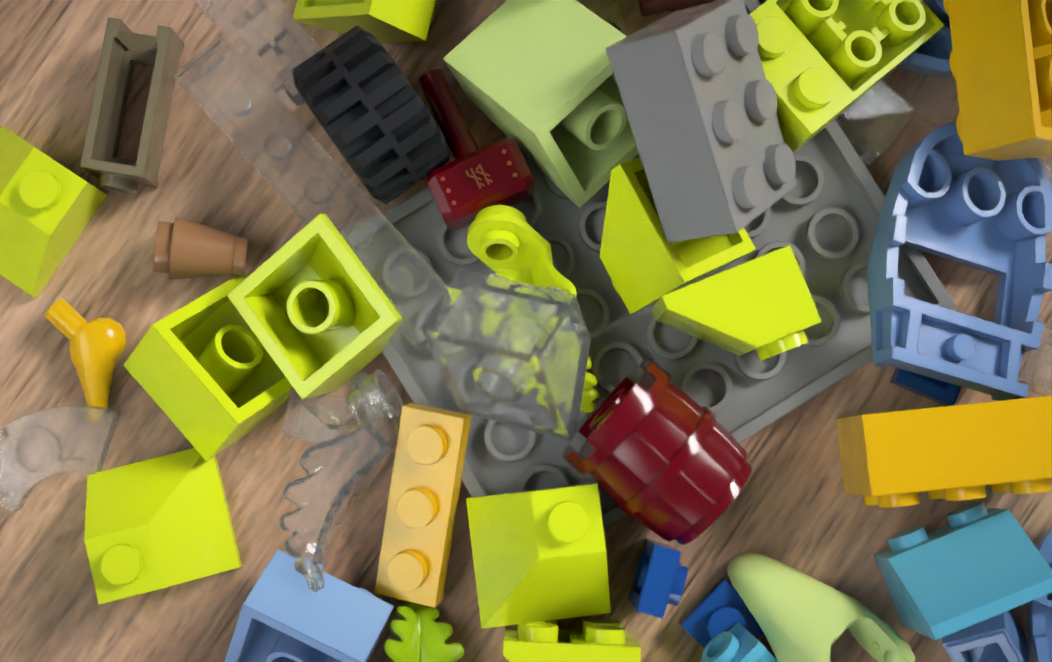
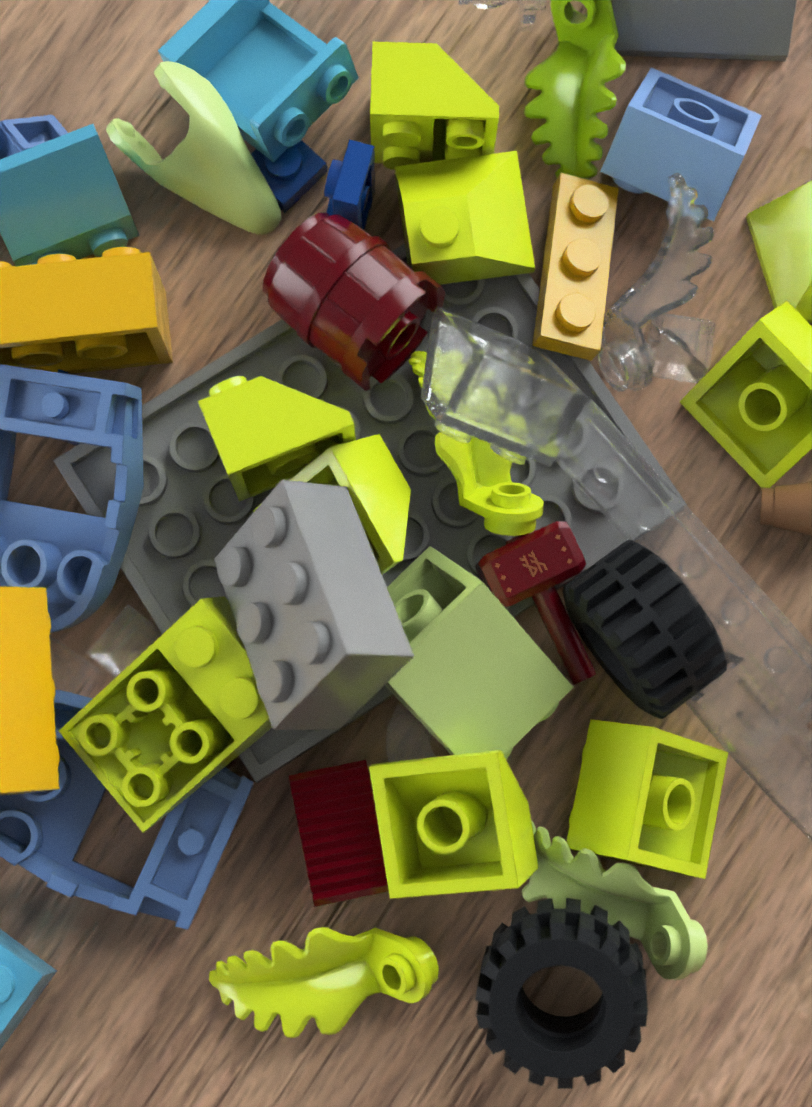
camera: 175 degrees right, 5 degrees down
(316, 310) = (691, 433): neon yellow slope -> none

